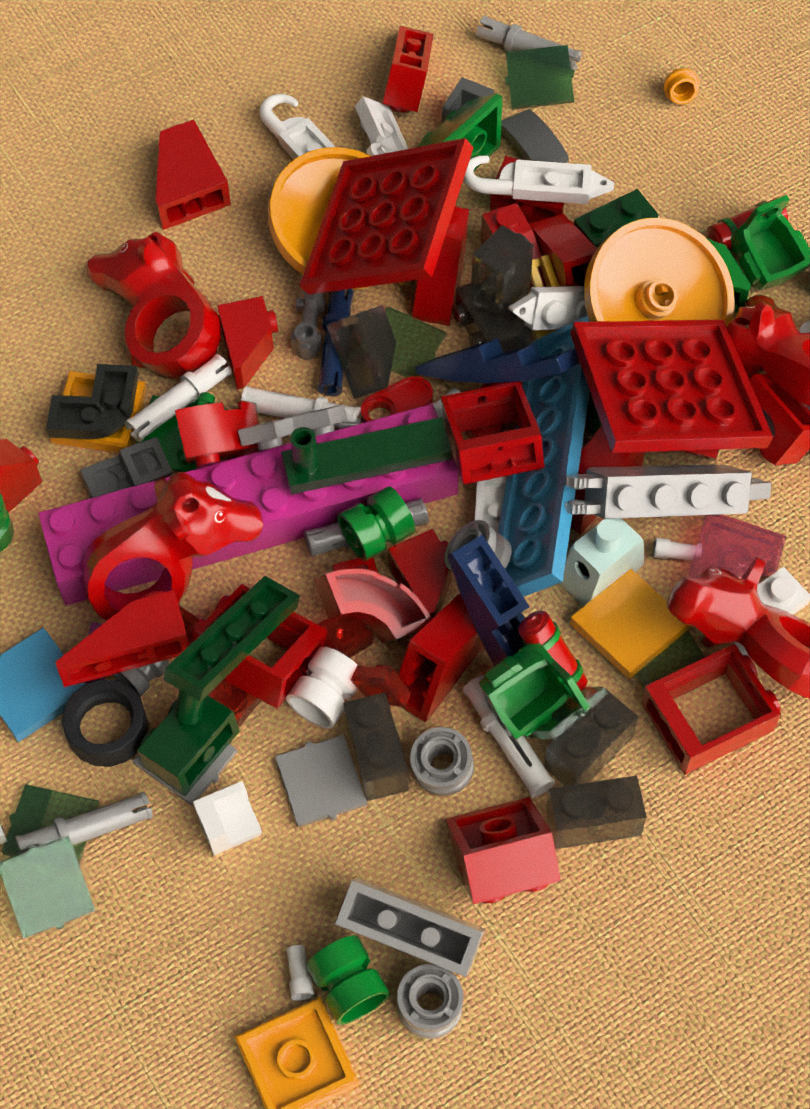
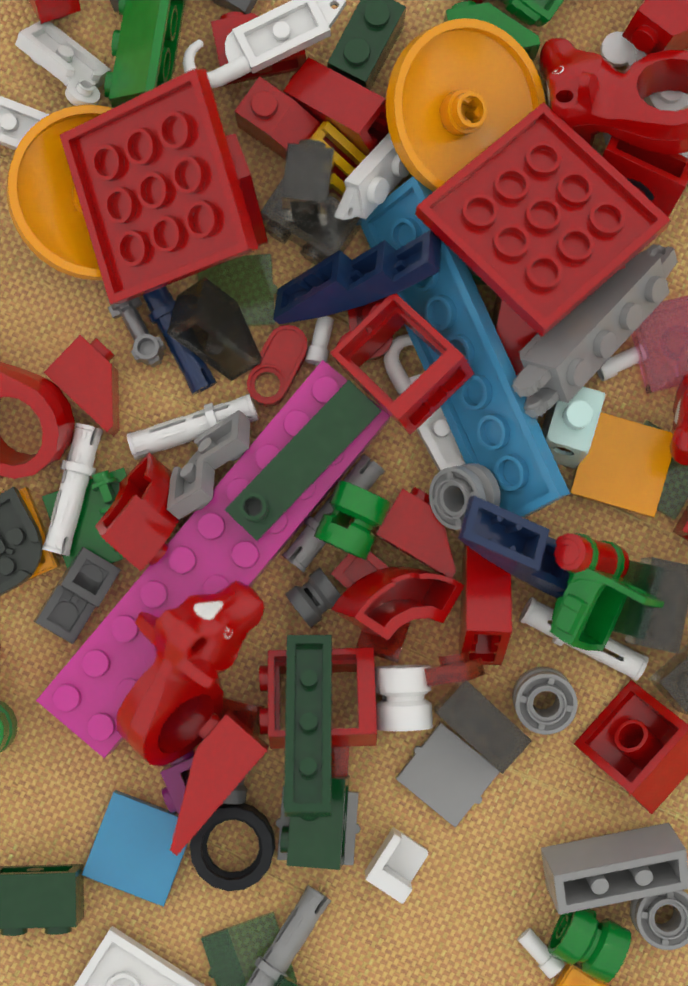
camera: 35 degrees left, 25 degrees up
(301, 573) = (313, 597): none -> dark grey wheel

